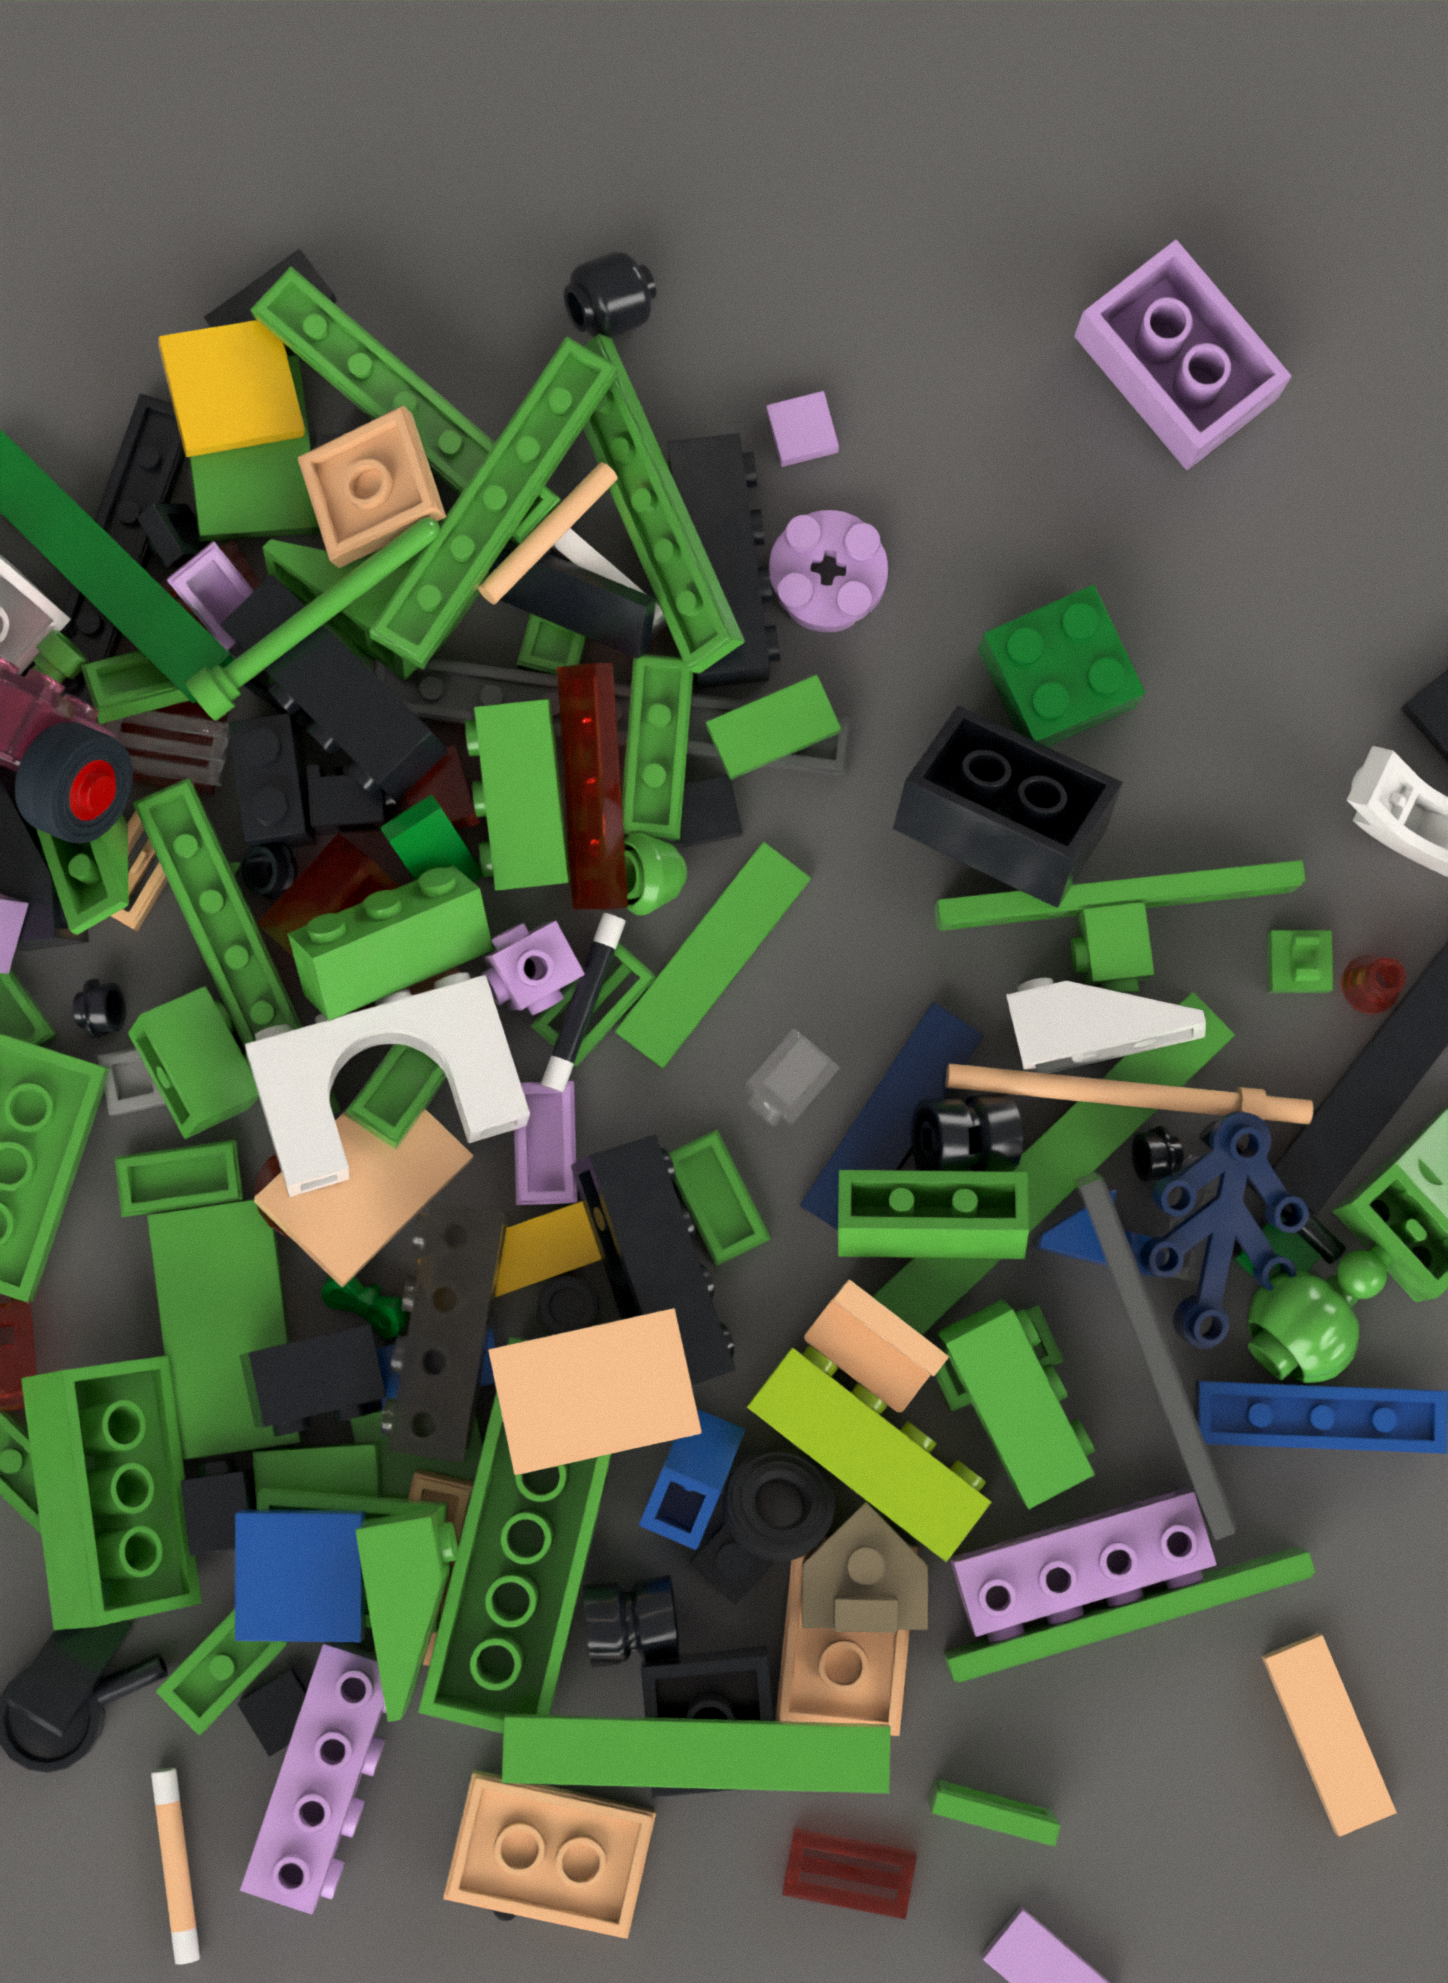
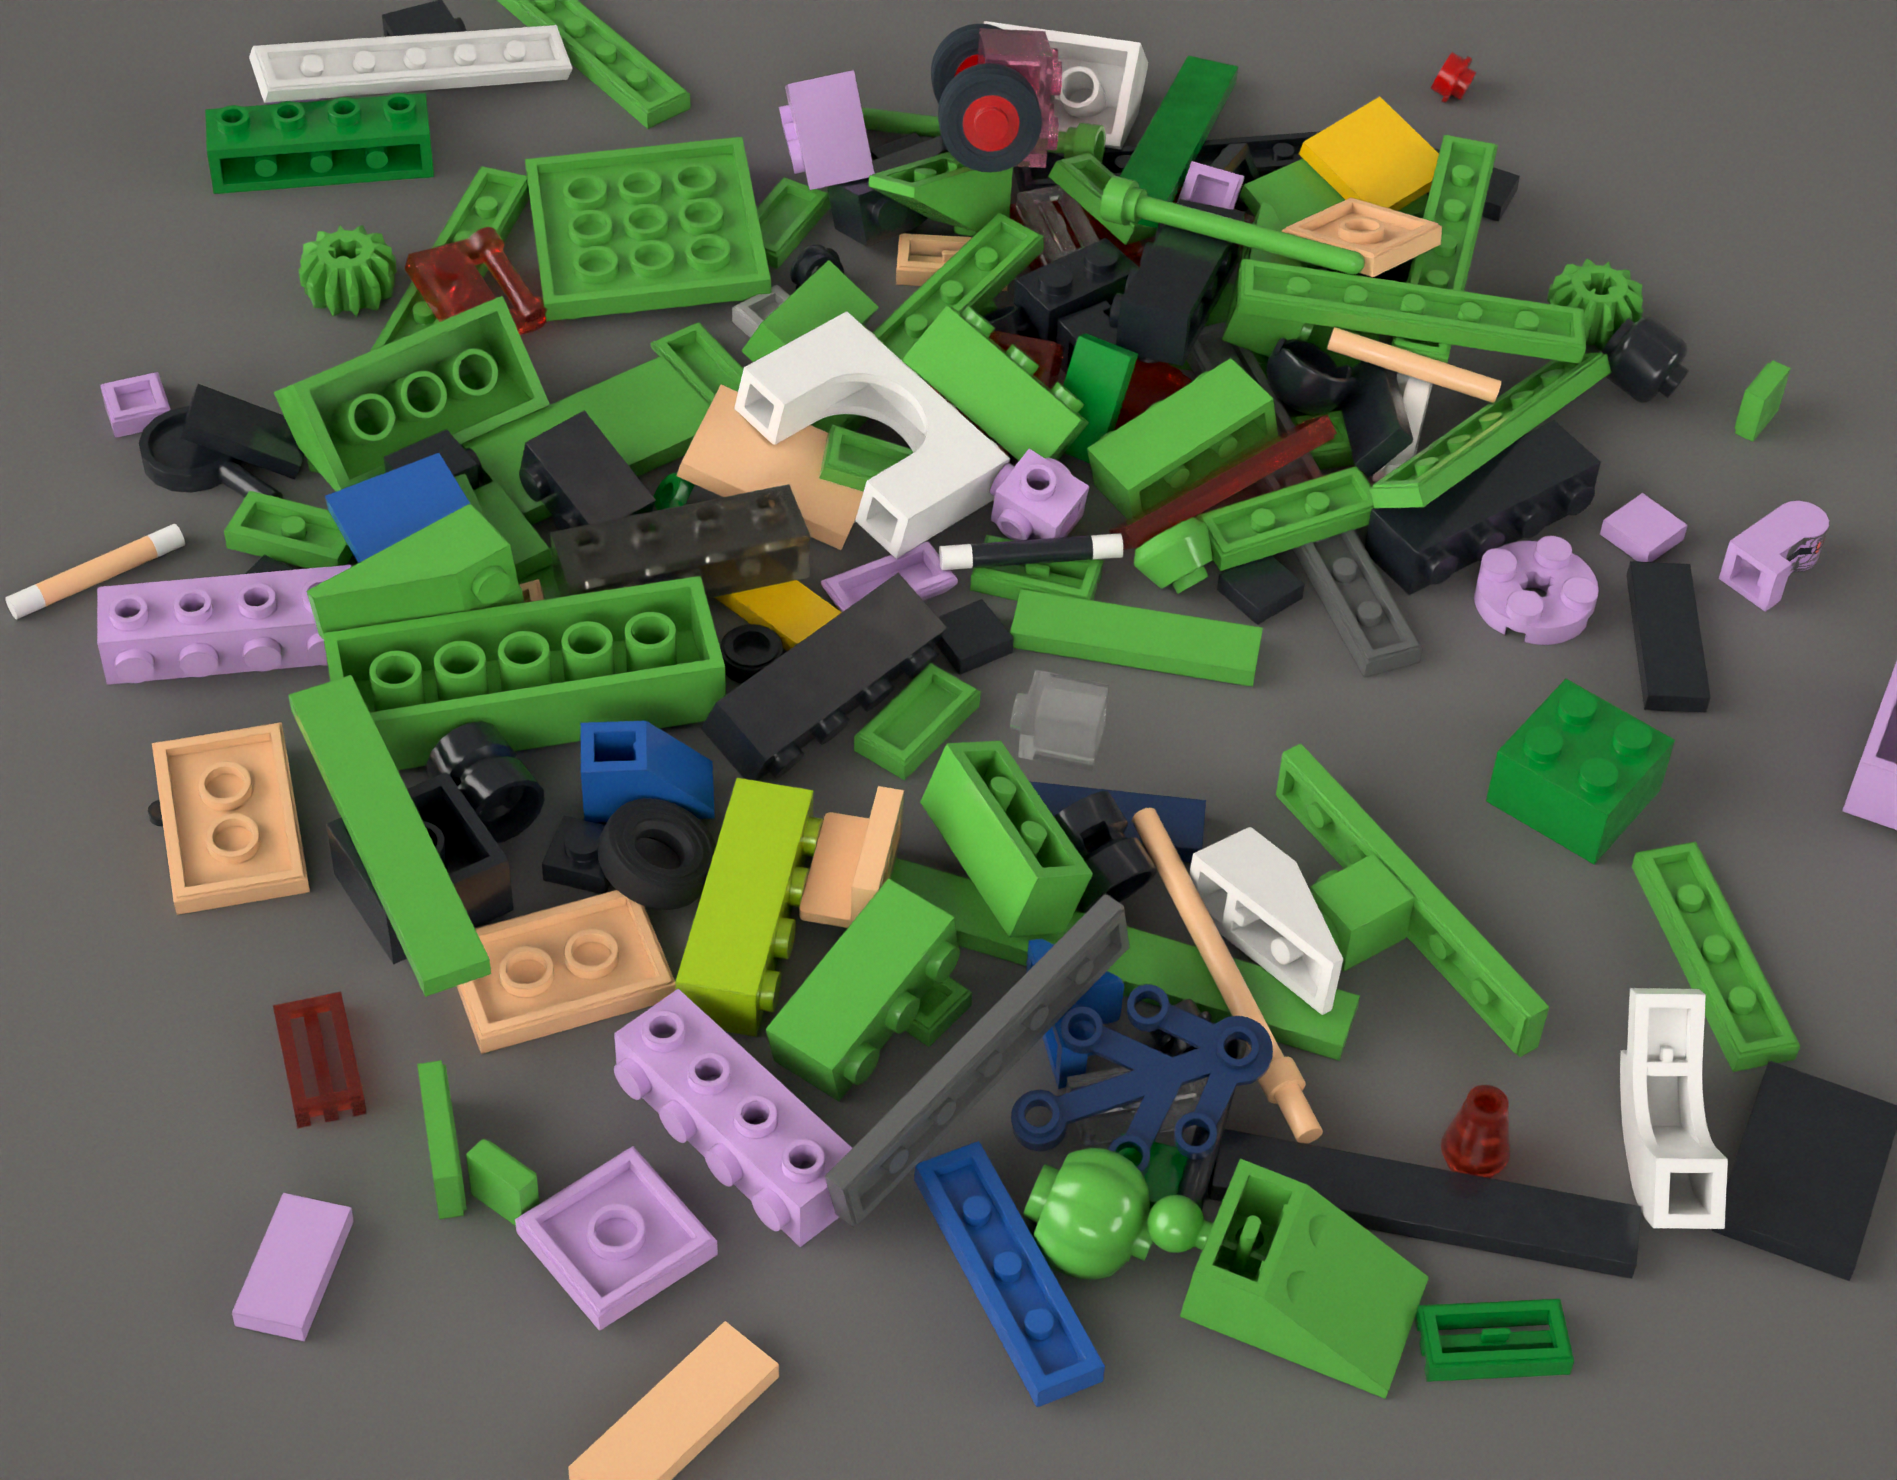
camera: 60 degrees right, 35 degrees down
(122, 221) = (1454, 77): none -> red plate
(497, 633) = (1307, 377): none -> black hair
(509, 273) = (1603, 293): none -> bright green gear
(594, 1391) = (688, 640): light nougat tile -> none
(642, 1101) = (973, 637): none -> black tile
(711, 223) = (1761, 400): none -> bright green tile
(773, 727) = (1367, 586): bright green tile -> none
(865, 1579) = (622, 941): dark tan plate -> none
(890, 335) = (1772, 549): none -> lavender leg
(932, 489) = (1667, 637): none -> black tile
(1006, 805) = (1423, 752): black brick -> none
(1061, 1779) = (501, 1181): none -> bright green tile
(1109, 1621) = (711, 1180): bright green tile -> none
(1147, 1708) = (616, 1237): none -> lavender plate
(1276, 673) = (1715, 956): none -> bright green tile
(1299, 961) = (1447, 1075): bright green tile -> none

